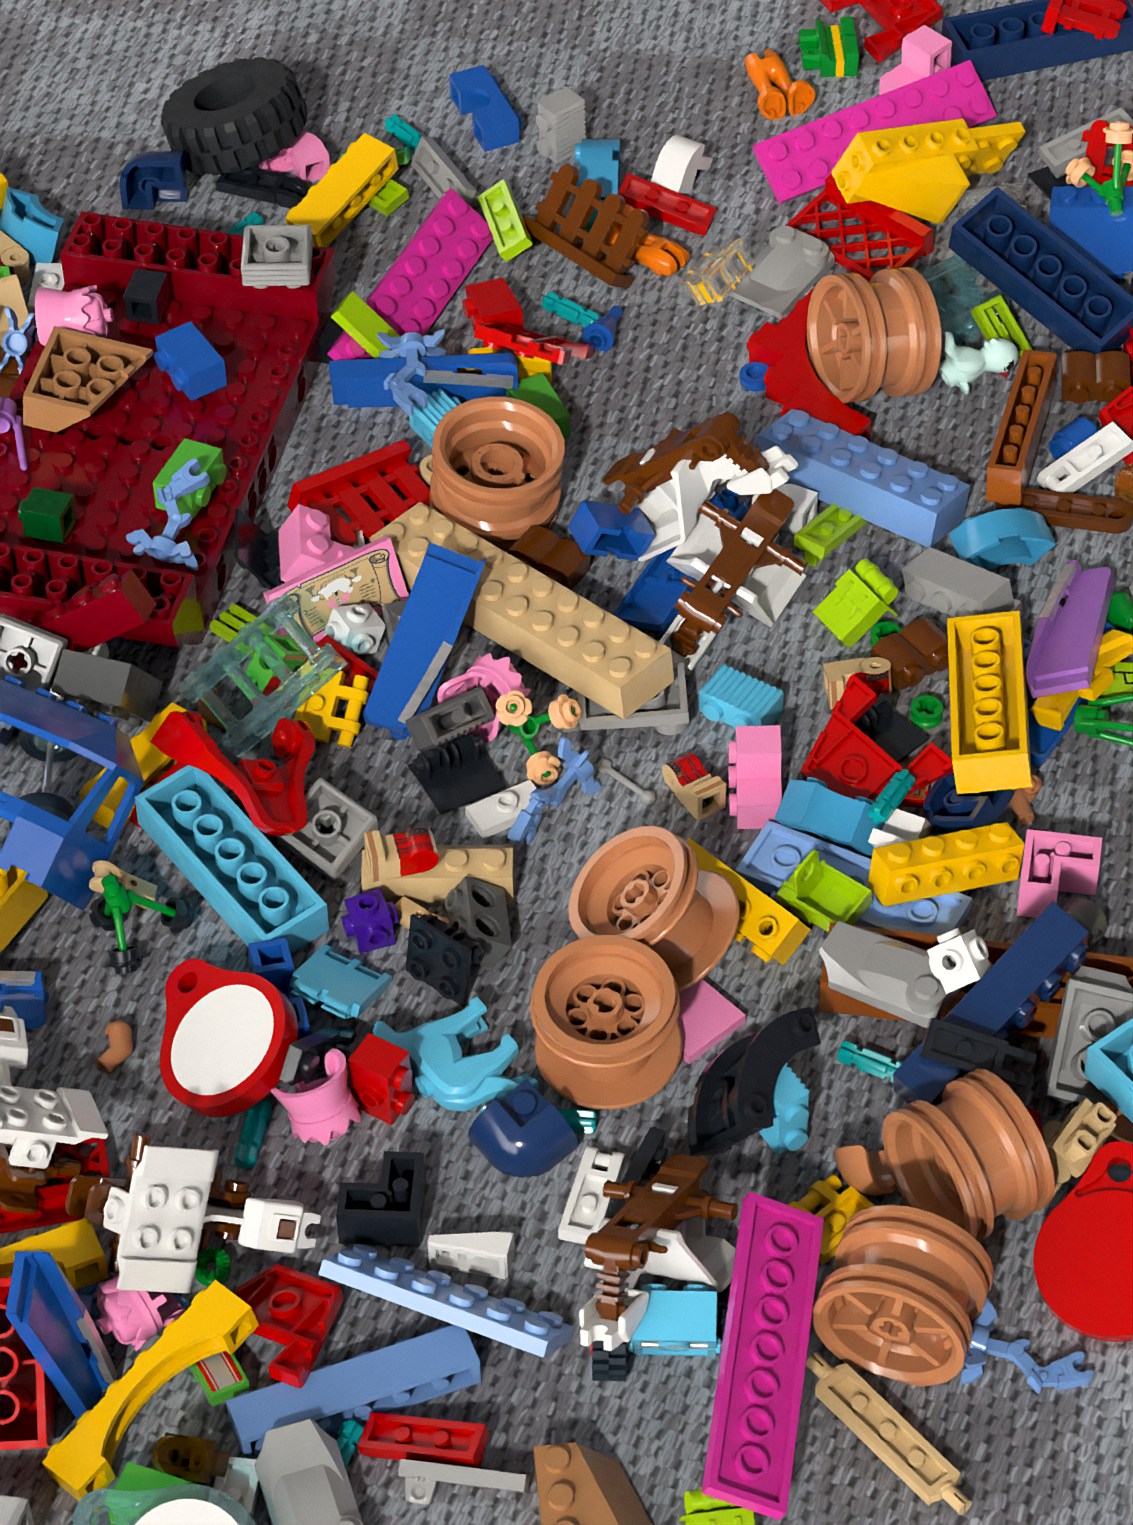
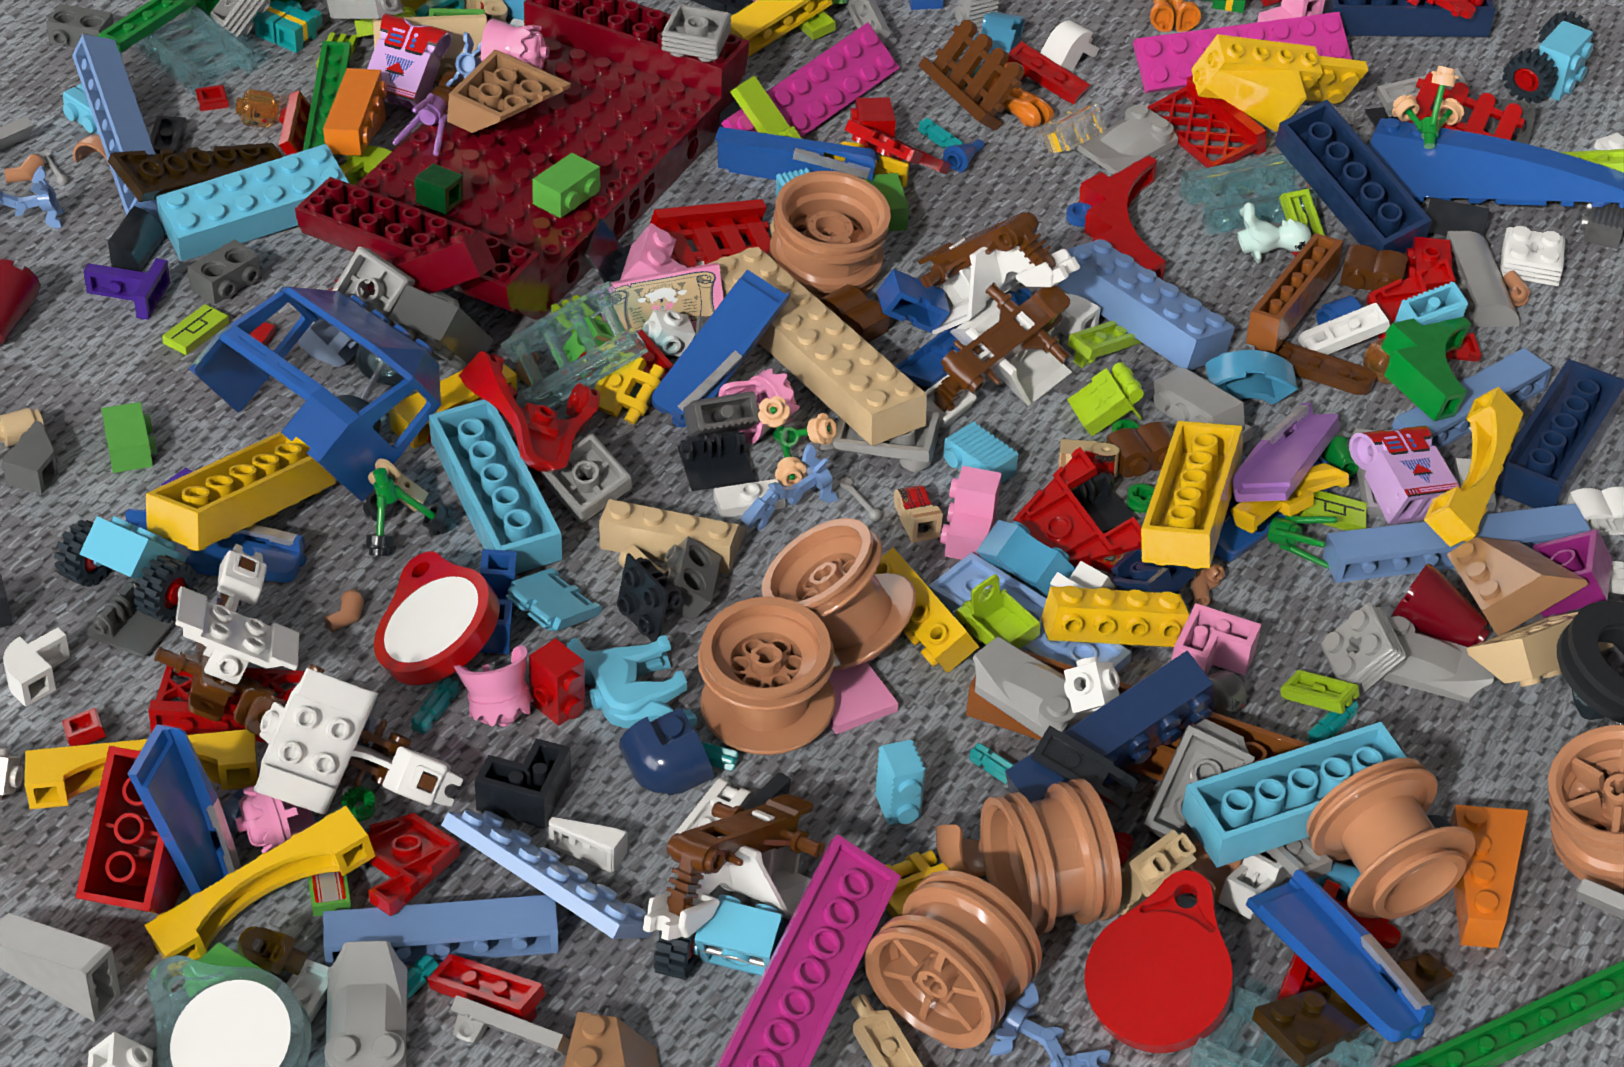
camera: 10 degrees right, 5 degrees down
(147, 296) = (583, 47): black brick -> none
(163, 546) = (525, 230): medium blue piece -> none
(190, 361) = (599, 99): blue brick -> none
(307, 1055) = (496, 647): black hinge -> none
(370, 921) = (597, 558): dark purple brick -> none
(399, 853) = (636, 505): leg -> none
(410, 346) = (789, 128): medium blue piece -> none
(505, 220) = (907, 58): lime hinge -> none
(739, 1083) = (863, 756): black fence -> none
(874, 334) = (1186, 192): nougat wheel -> none
(891, 796) = (1083, 552): teal axle -> none

